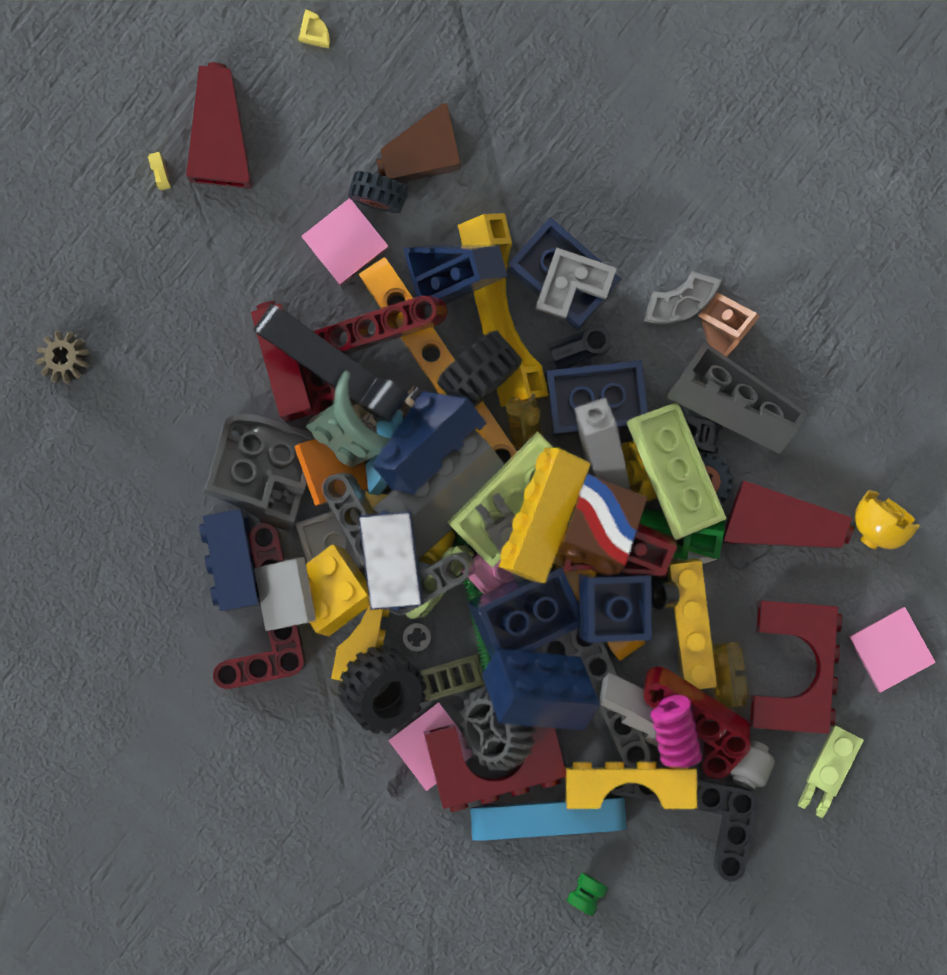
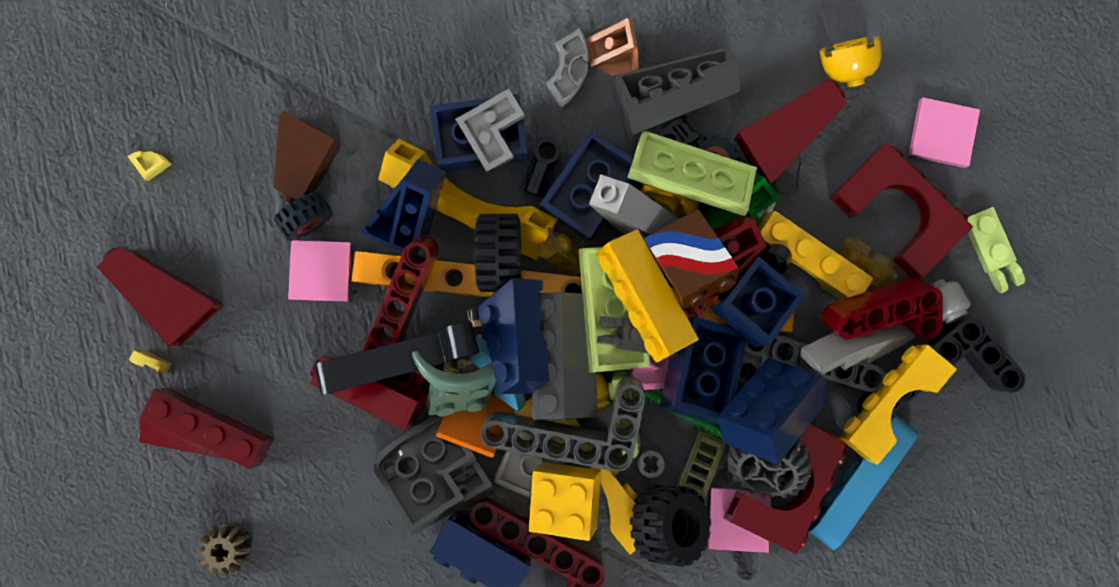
camera: 50 degrees left, 0 degrees up
(135, 248) = (189, 426): none -> dark red wedge
(285, 594) = (540, 539): light grey tile -> none
(390, 560) = (583, 439): flat silver piece -> none
(583, 900) = (941, 499): green wheel -> none
(676, 732) = (889, 336): dark pink piece -> none

